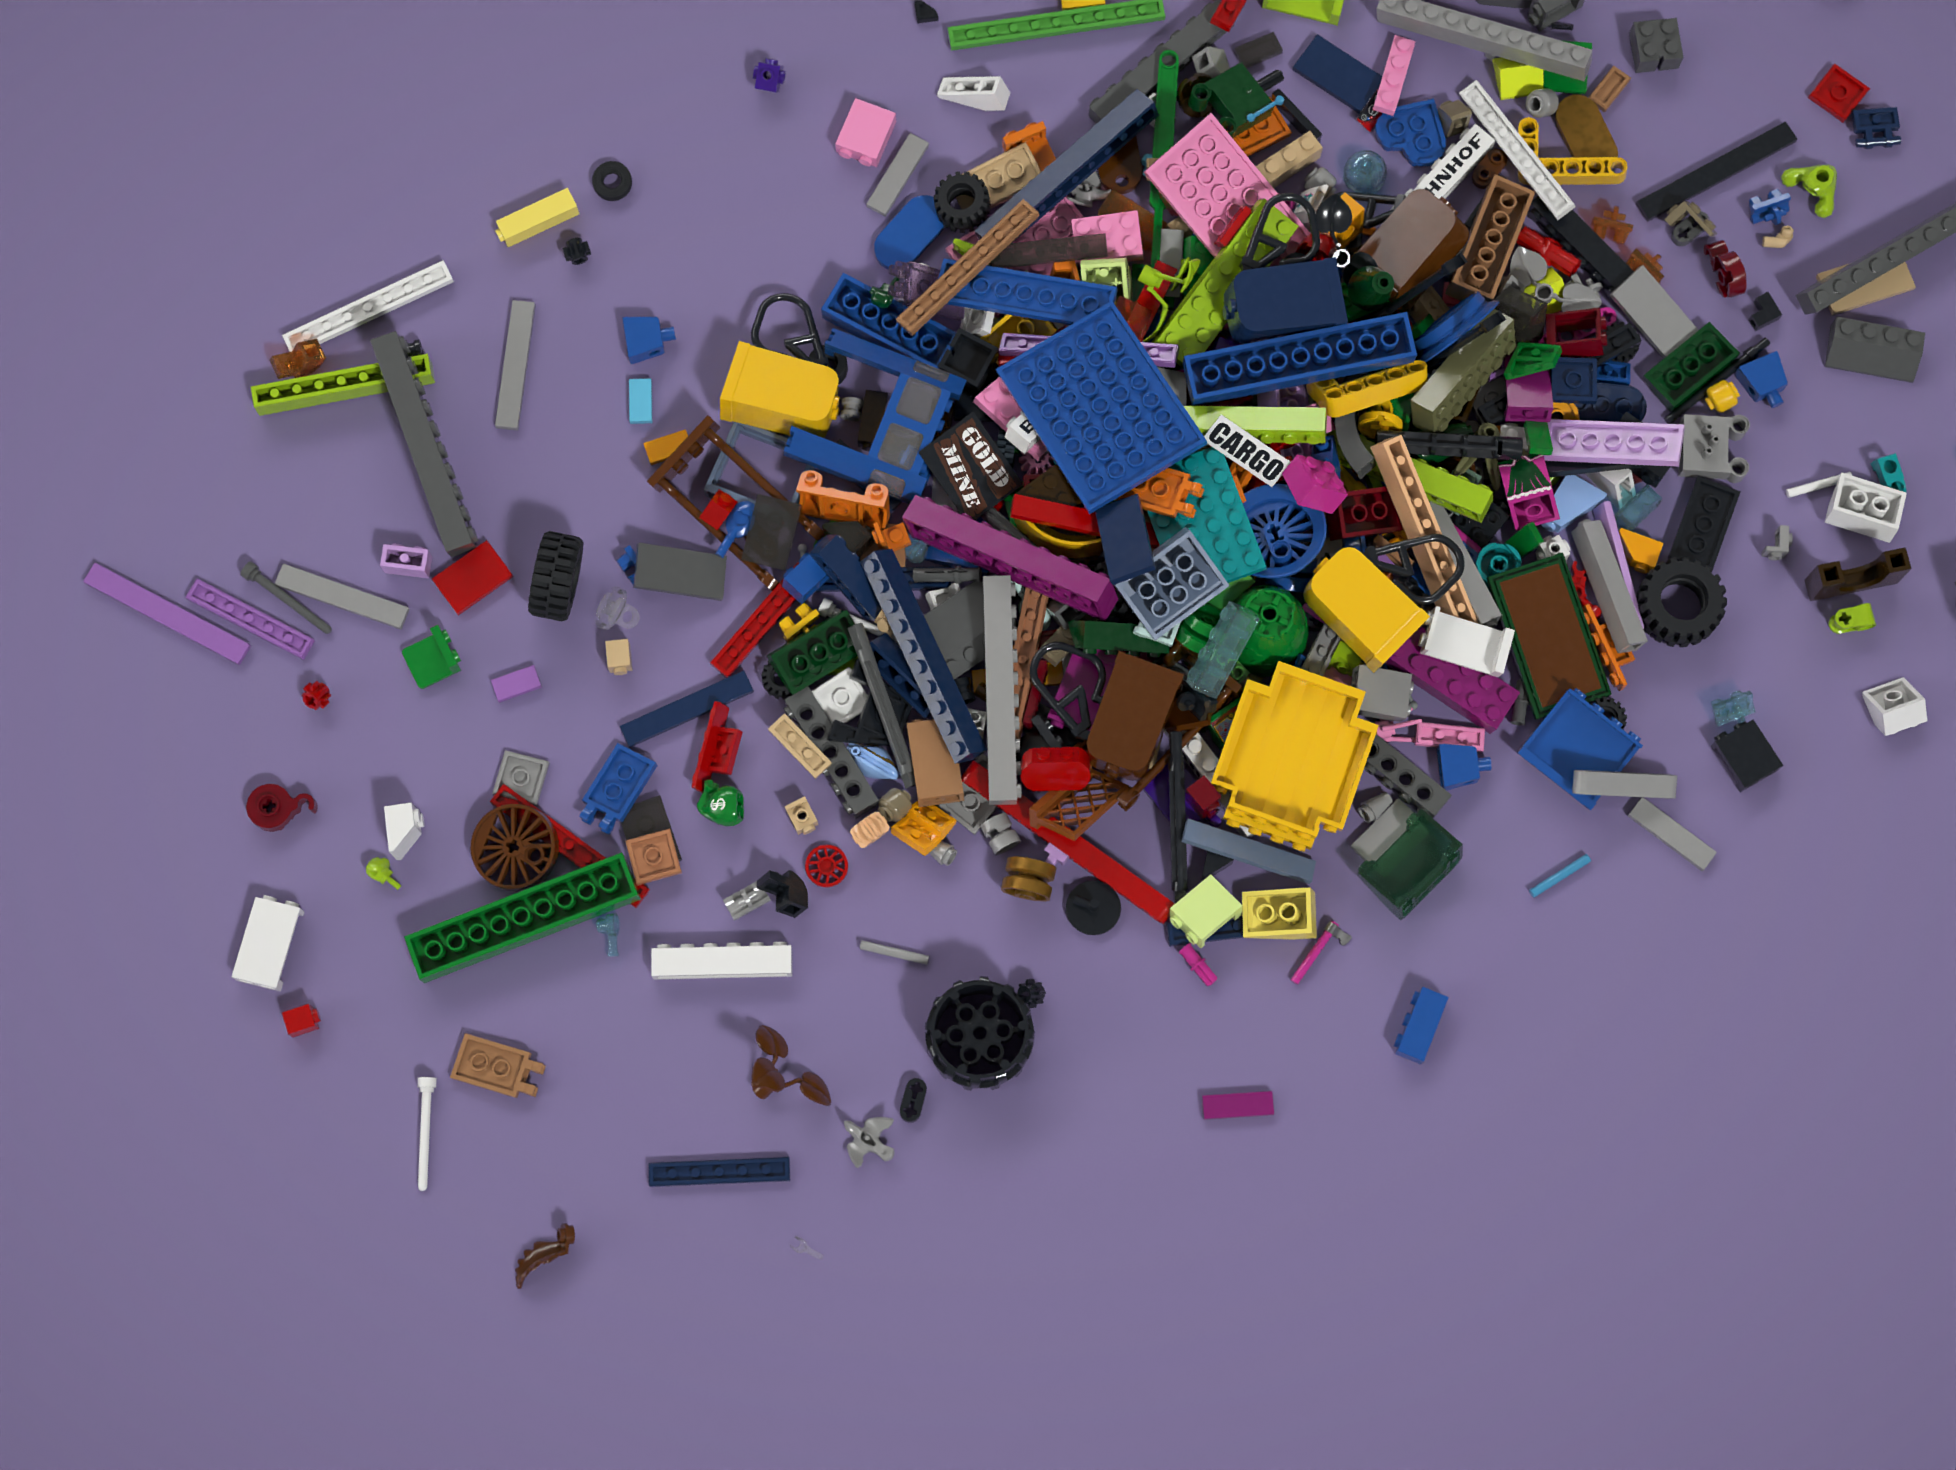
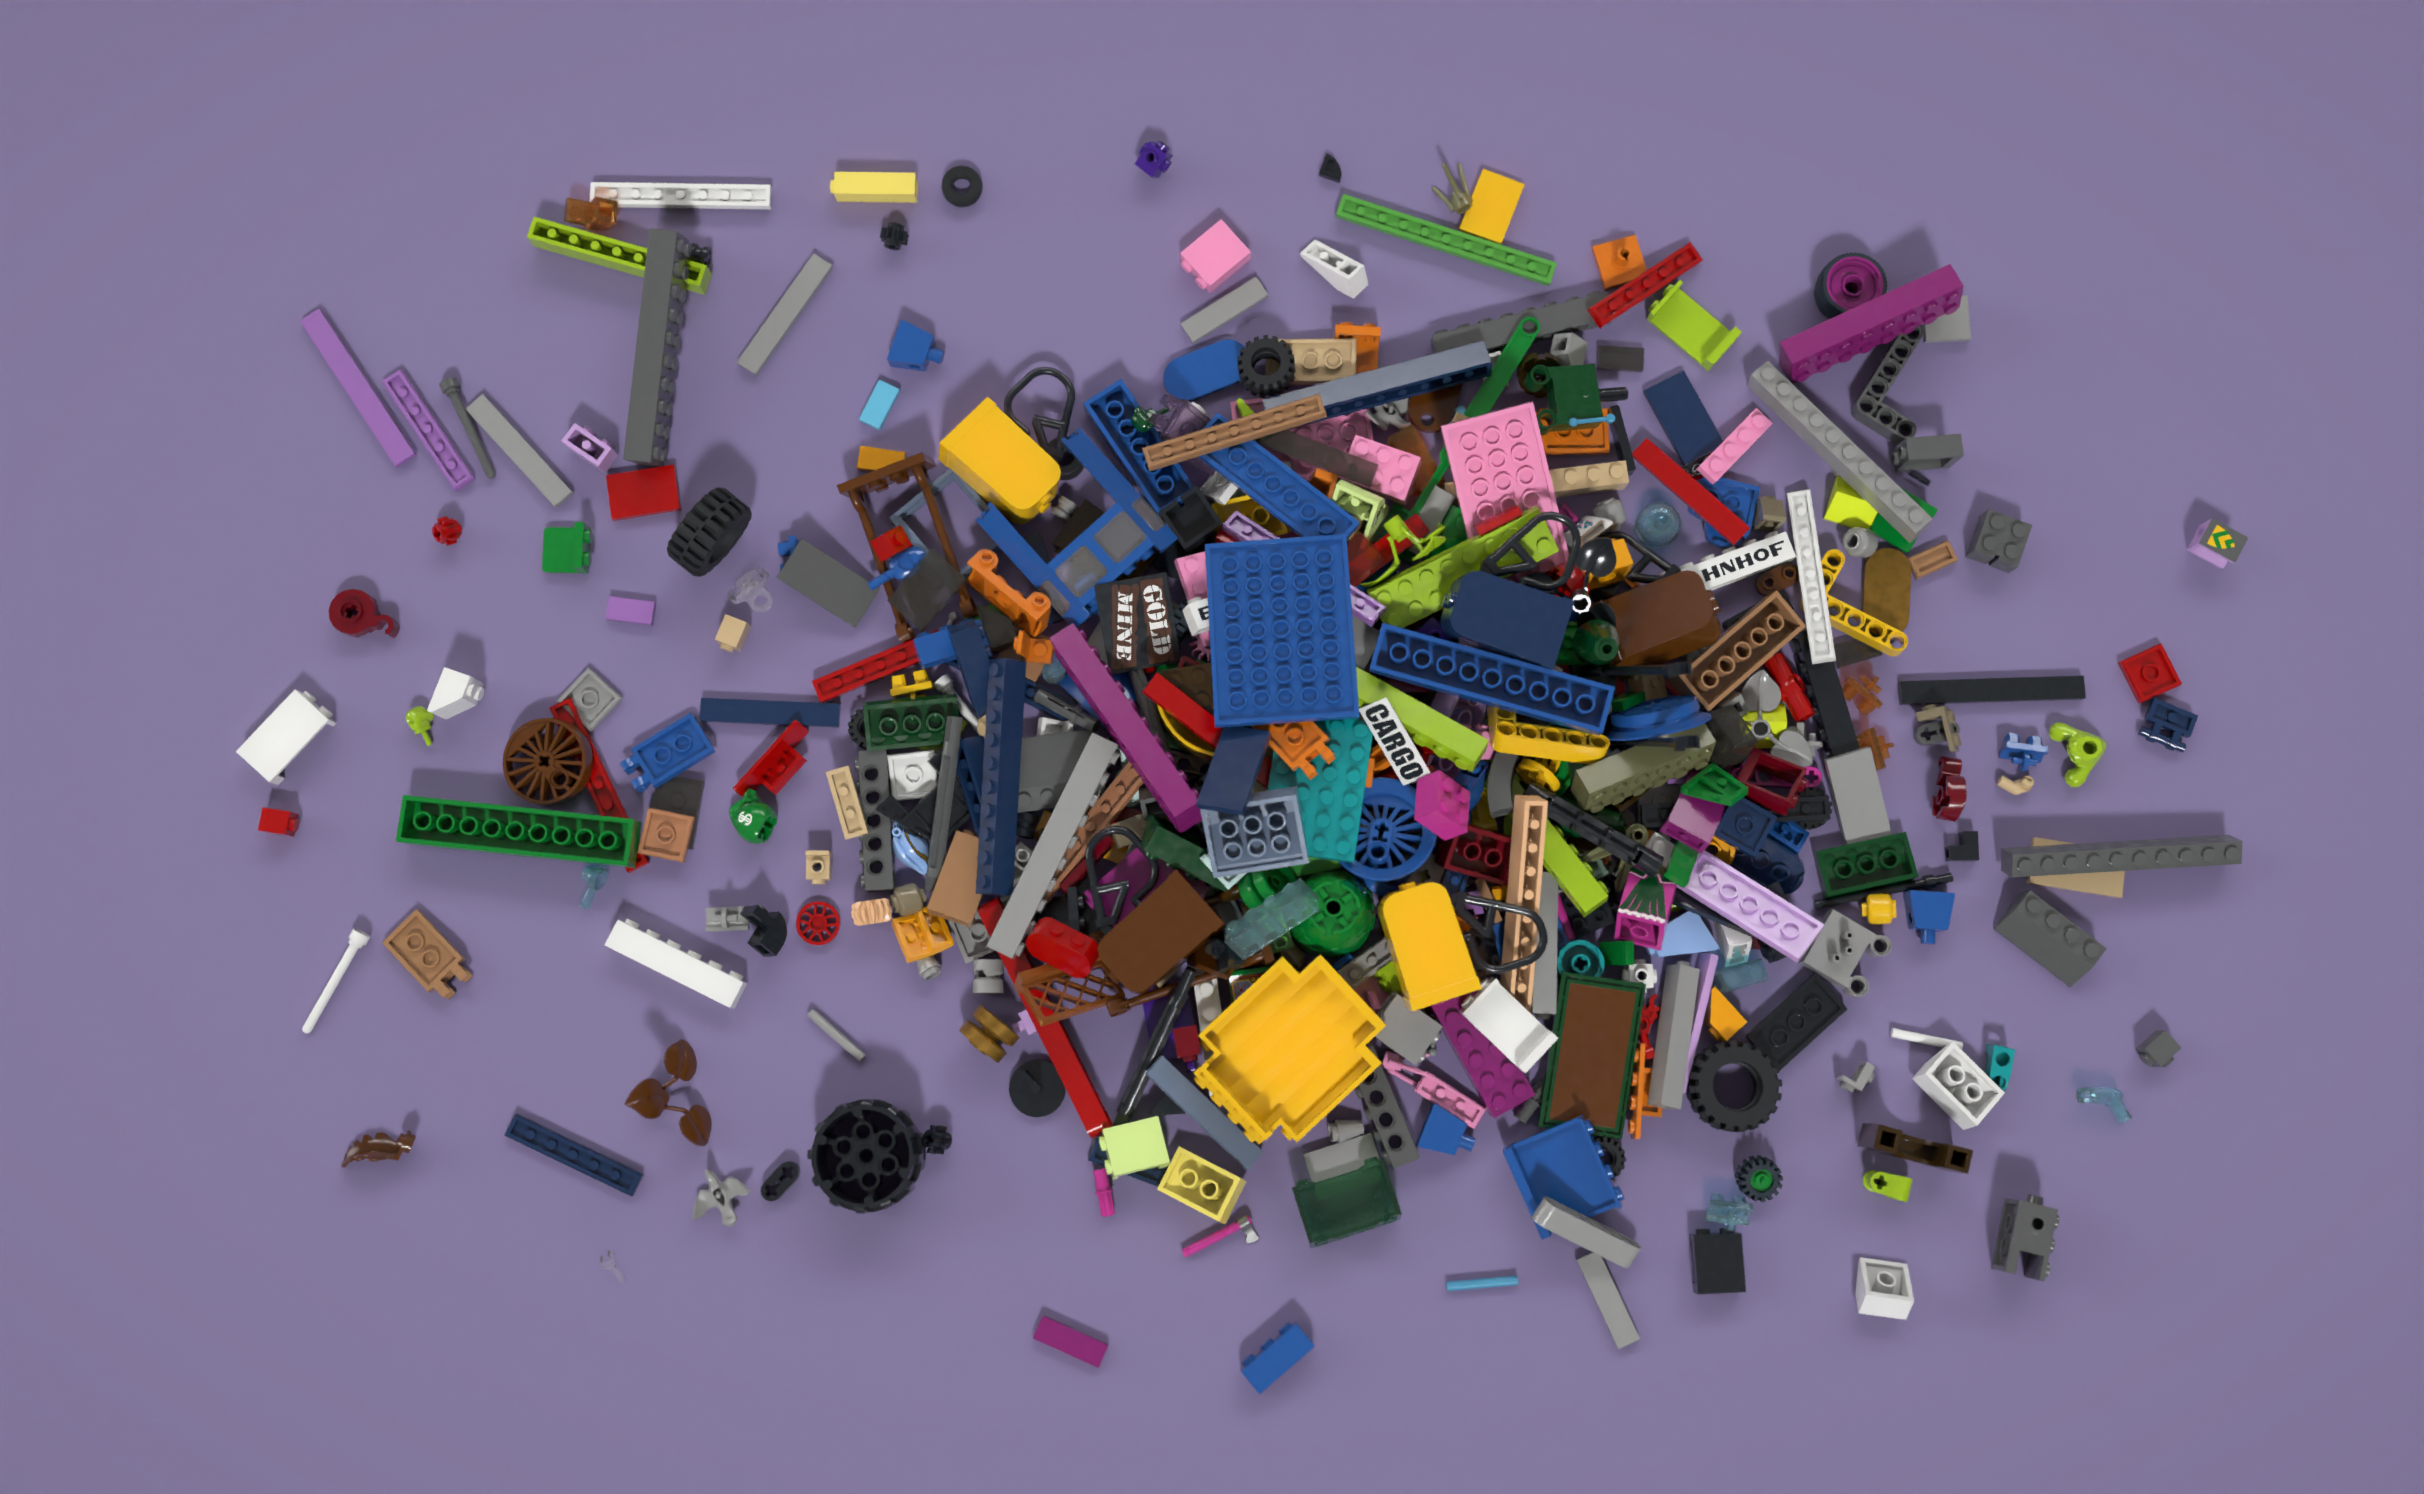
camera: 25 degrees right, 5 degrees up
(1377, 130) = (1690, 491): none -> red tile
(1587, 196) = (1854, 652): none -> clear smoke tile
(1743, 668) = (1759, 1178): none -> black wheel

